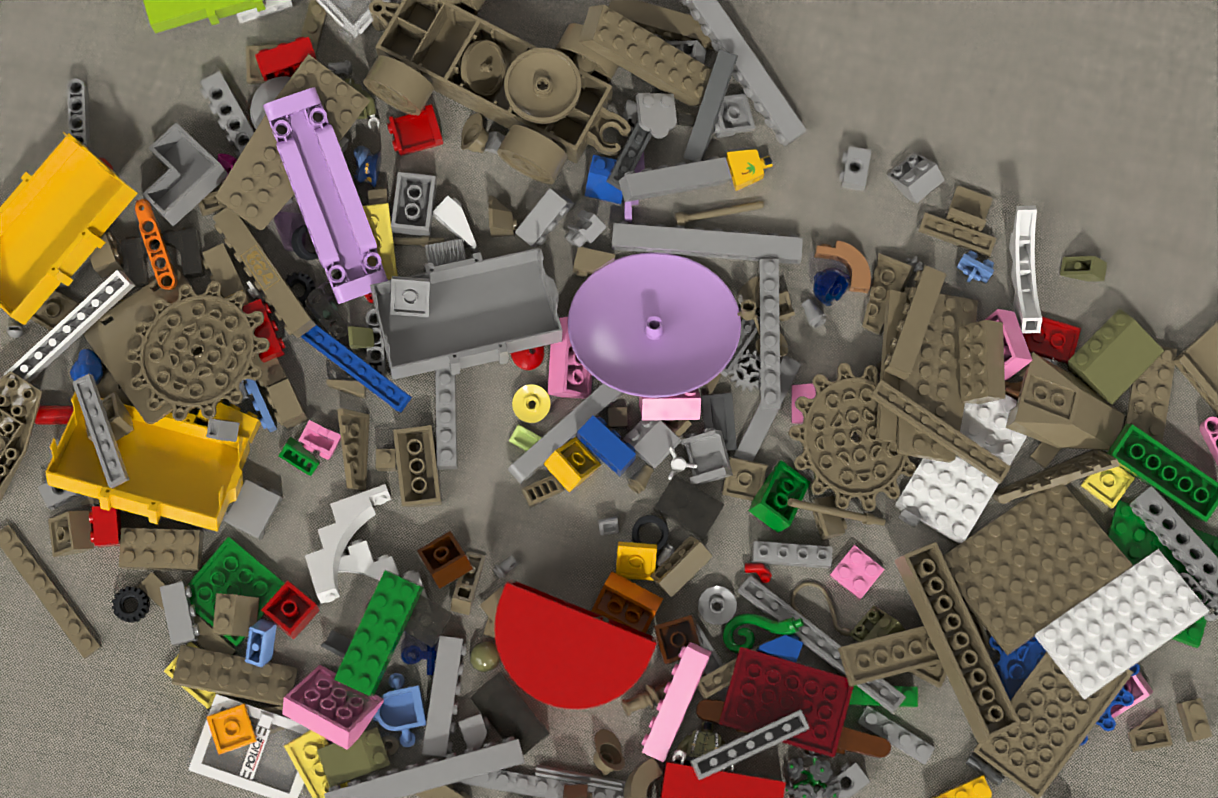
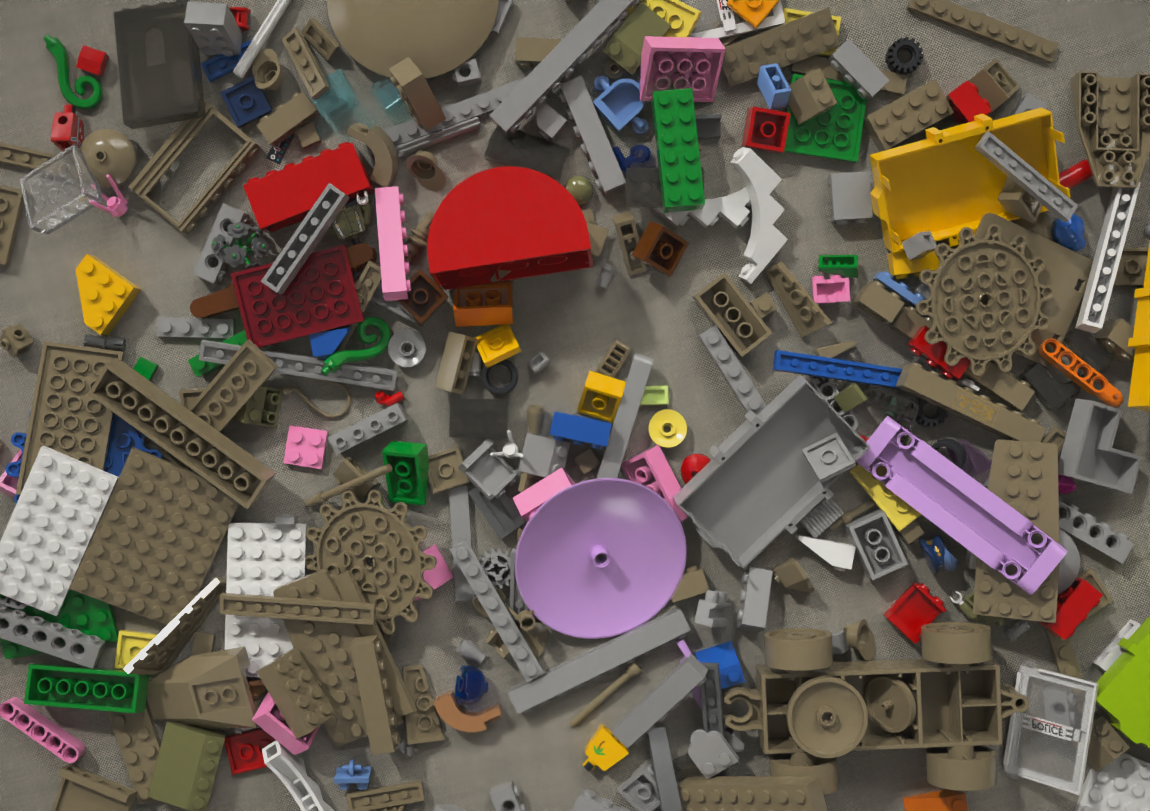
camera: 150 degrees right, 10 degrees up
(960, 725) = (145, 368): none -> green tile

